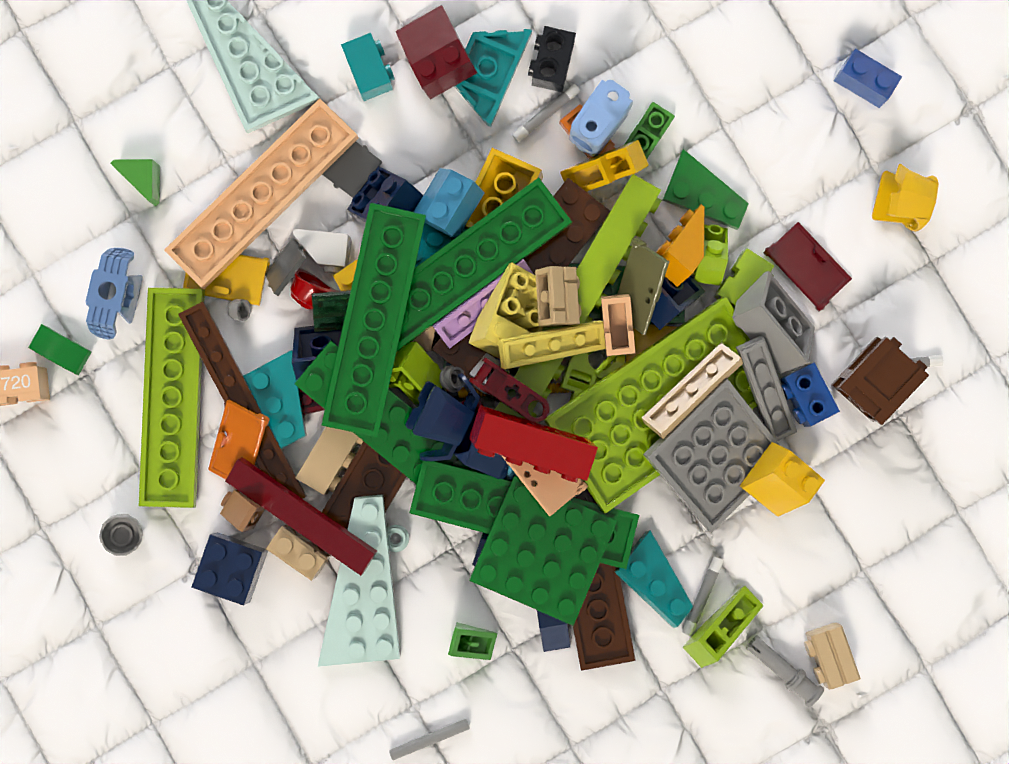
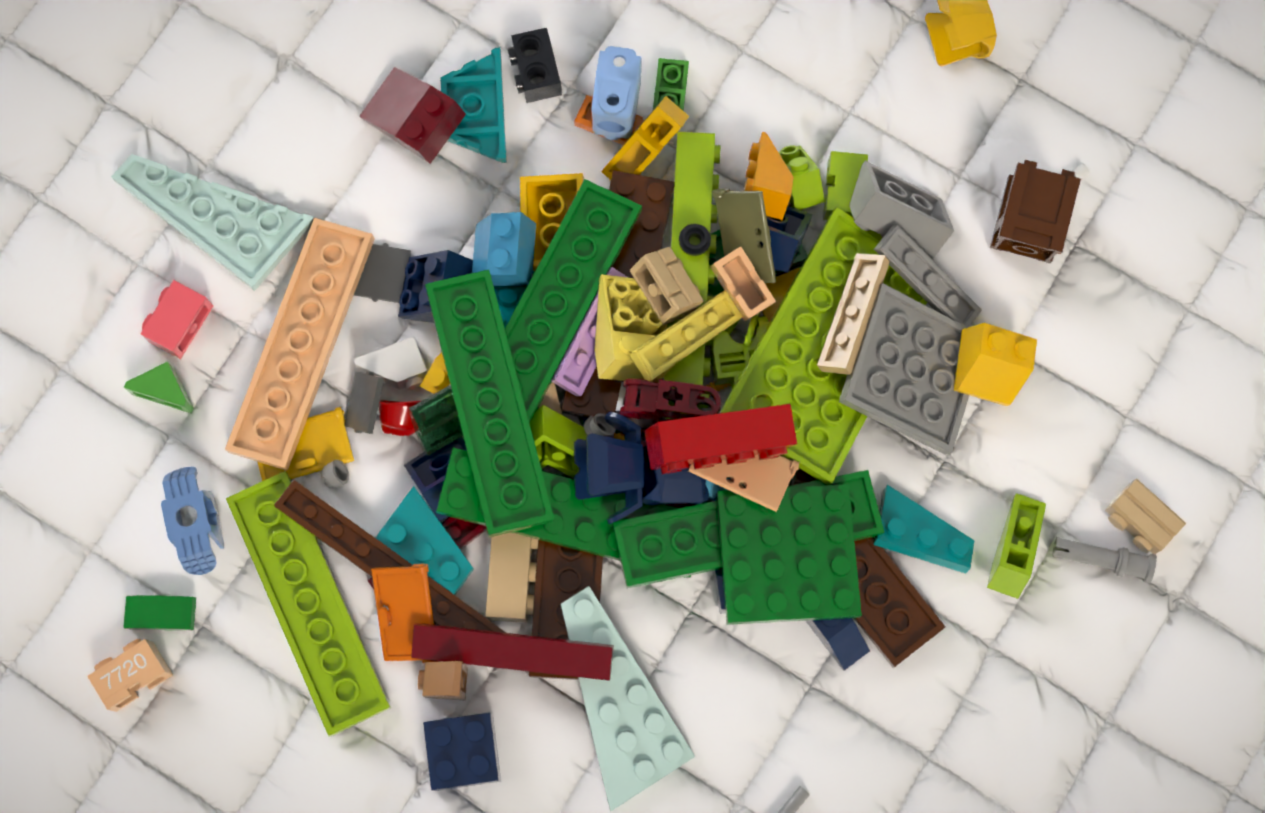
camera: 30 degrees left, 10 degrees down
(121, 534) = (324, 776): light grey hair -> none
(176, 127) = (176, 319): none -> coral brick
(298, 552) = (528, 696): tan brick -> none
(367, 66) = (348, 162): teal brick -> none
(397, 547) = (632, 622): light aqua plate -> none
(472, 642) = (763, 697): bright green slope -> none
(546, 112) = (556, 122): light grey bar -> none
(603, 261) = (694, 230): none -> black plate
(696, 185) = (744, 118): green wing -> none
(702, 596) = (978, 526): light grey bar -> none
(796, 259) = (886, 141): dark red door -> none
(808, 395) = (974, 266): blue brick -> none

